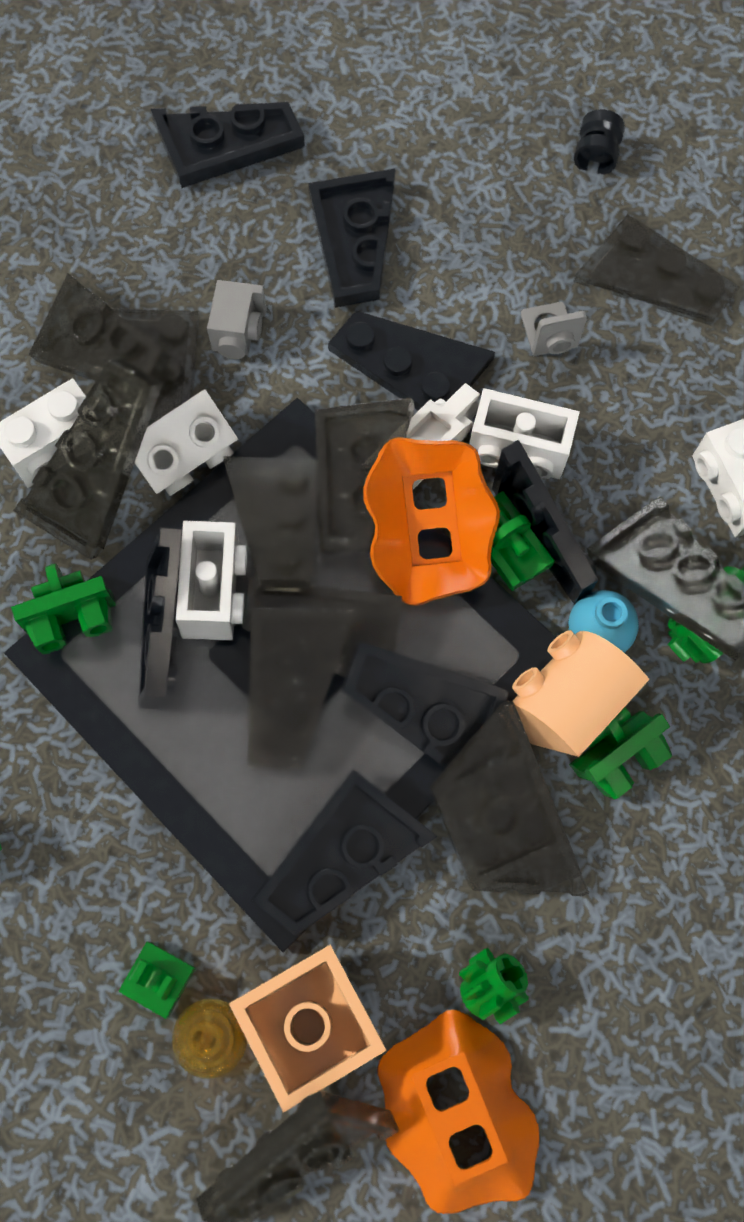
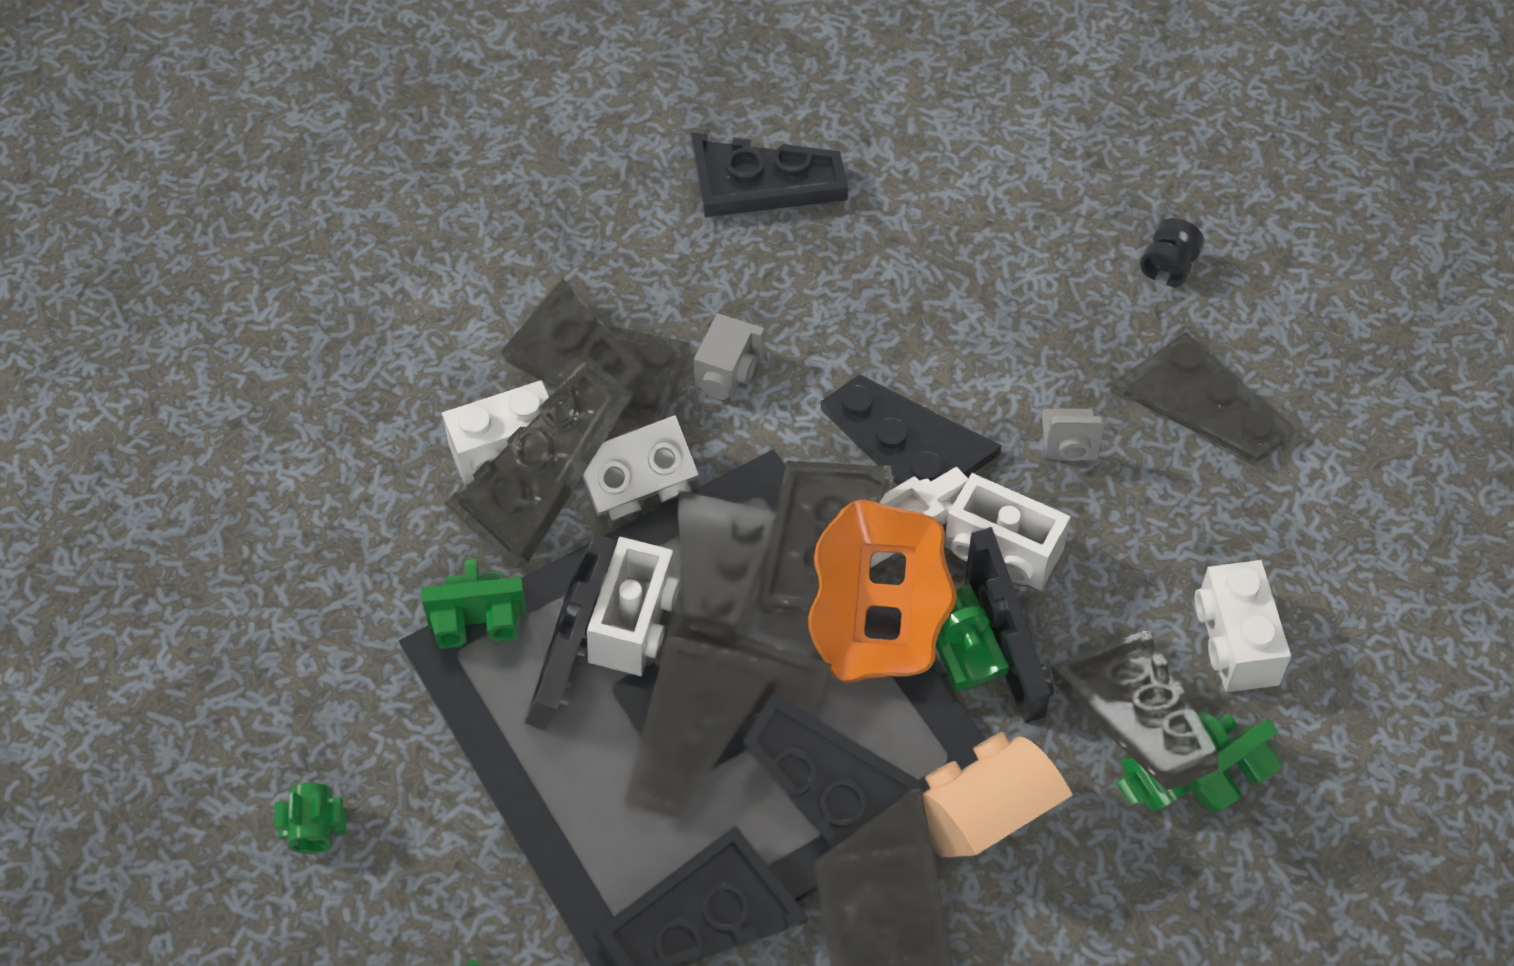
camera: 15 degrees right, 15 degrees down
(353, 232) = (878, 295): black wing -> none
(607, 616) = (1062, 741): medium azure brick -> none
(617, 743) = (1013, 892): green hips -> none

